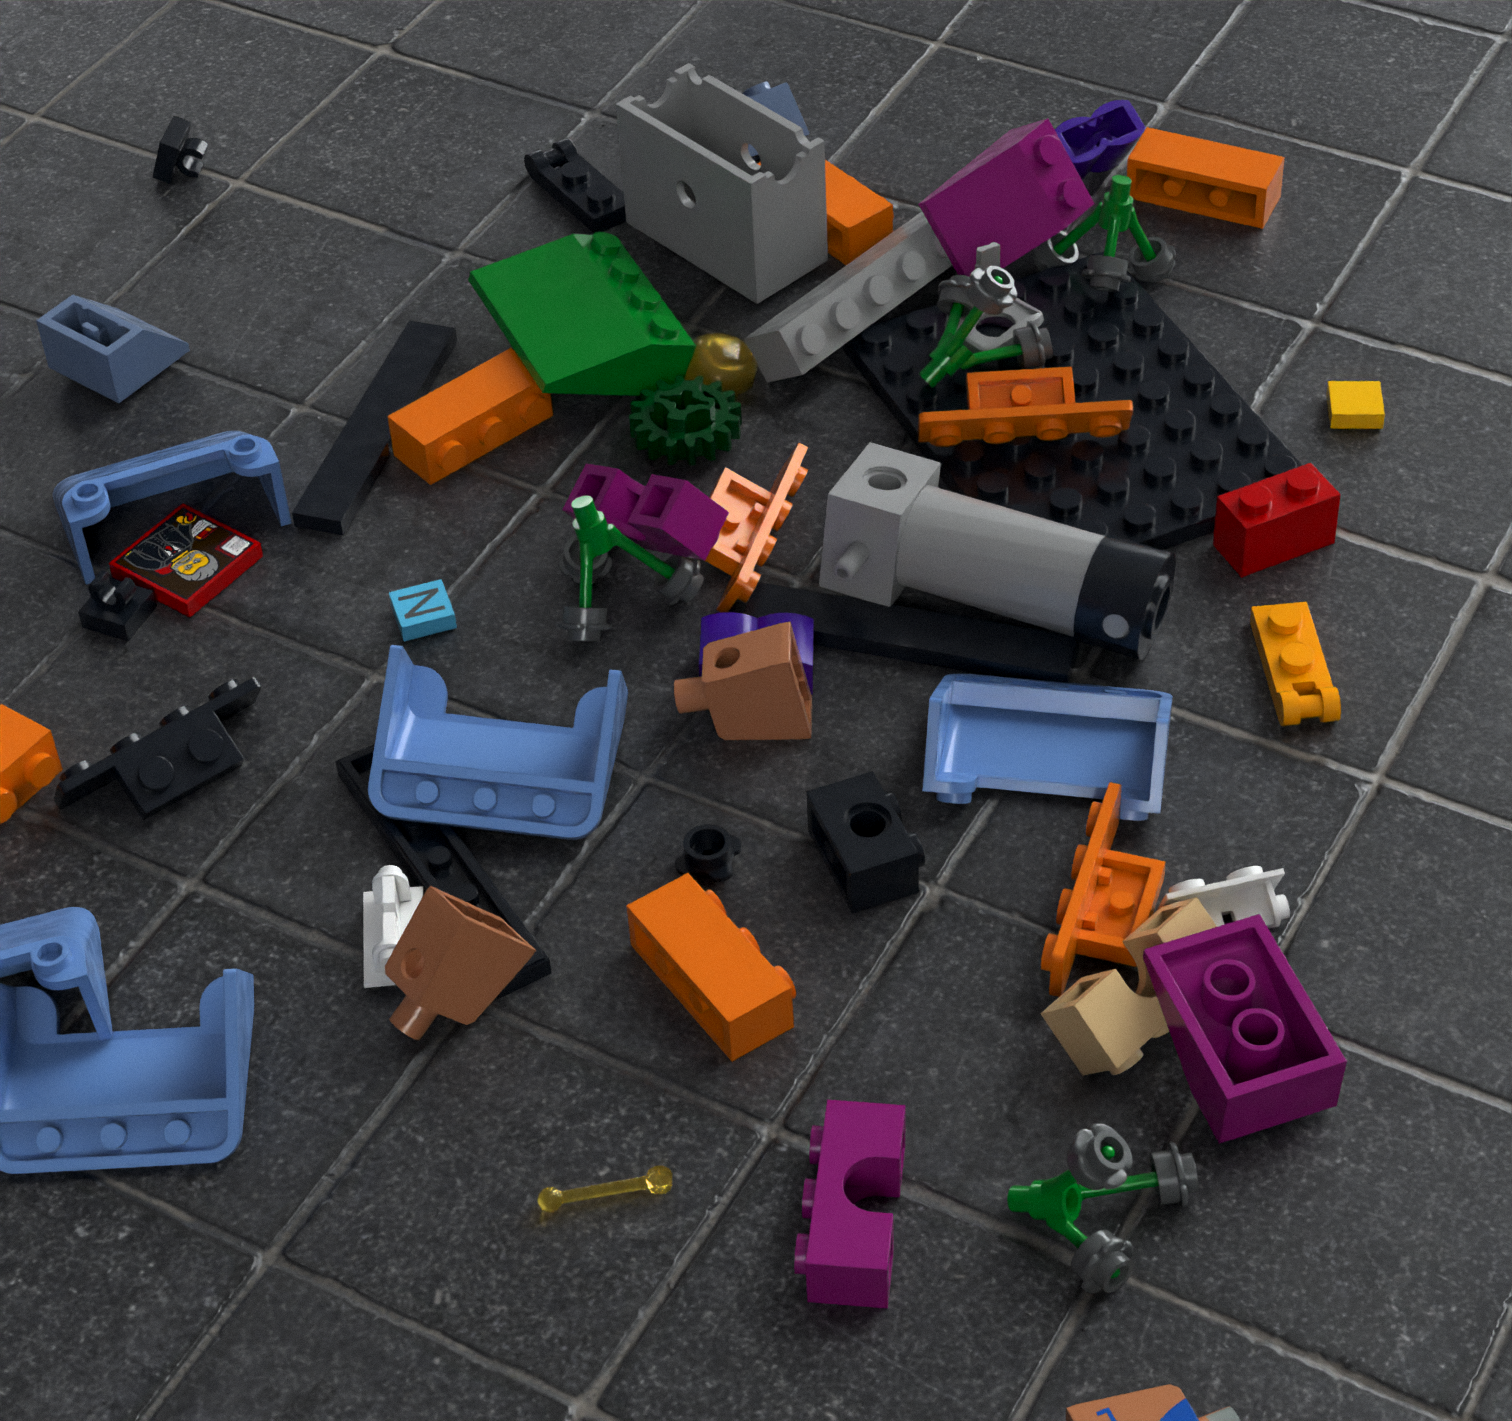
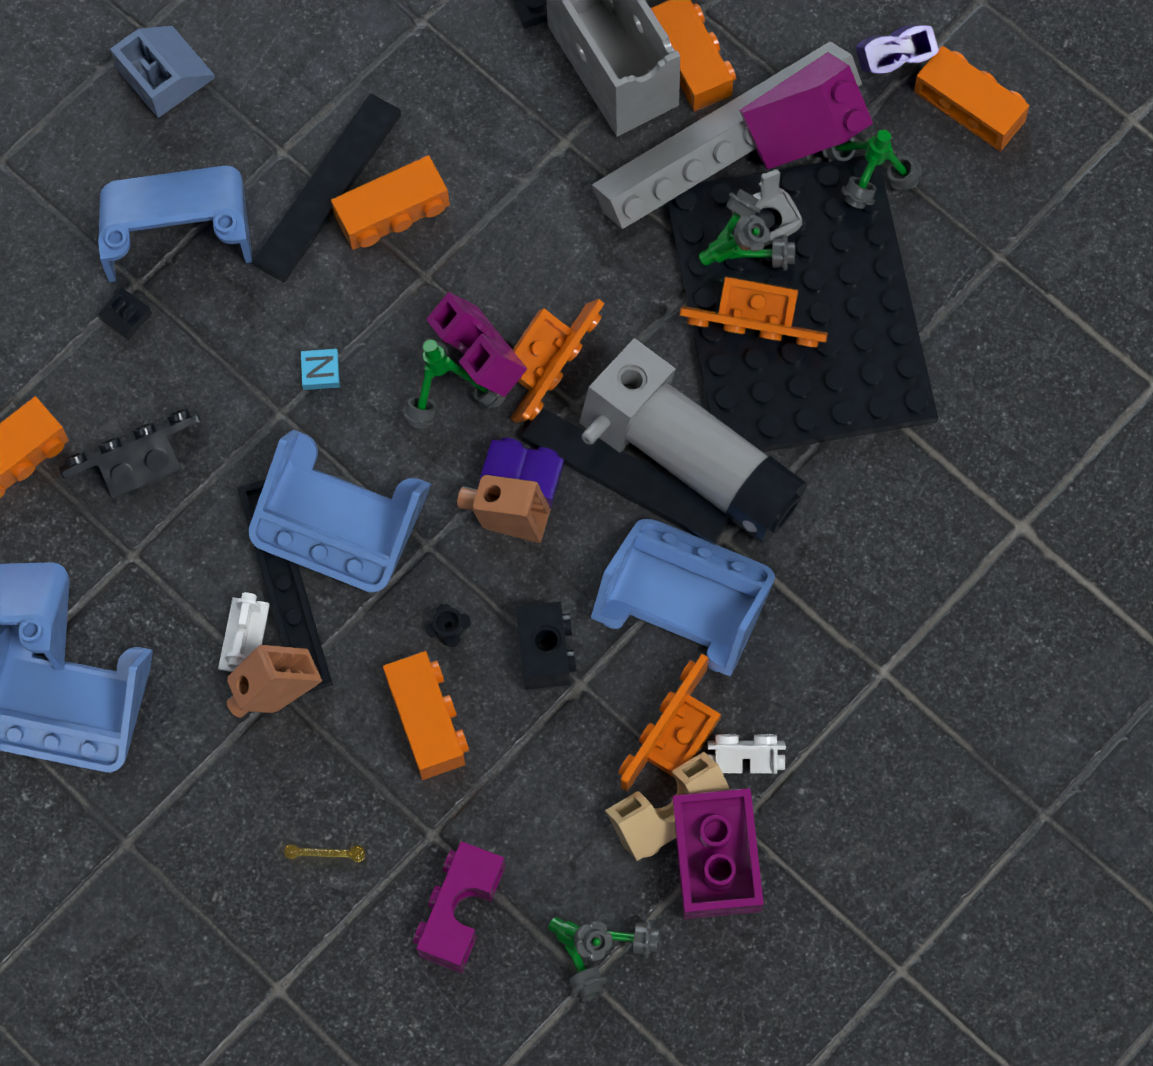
camera: 15 degrees right, 25 degrees up
(187, 559) = (176, 281): tile -> none
(584, 317) = (485, 138): green slope -> none
(685, 420) = (536, 260): dark green gear -> none
(723, 359) = (569, 198): clear yellow hair -> none
(1276, 519) = (895, 449): red brick -> none
(1294, 663) = (864, 568): light orange plate -> none
(1355, 405) = (994, 349): yellow tile -> none

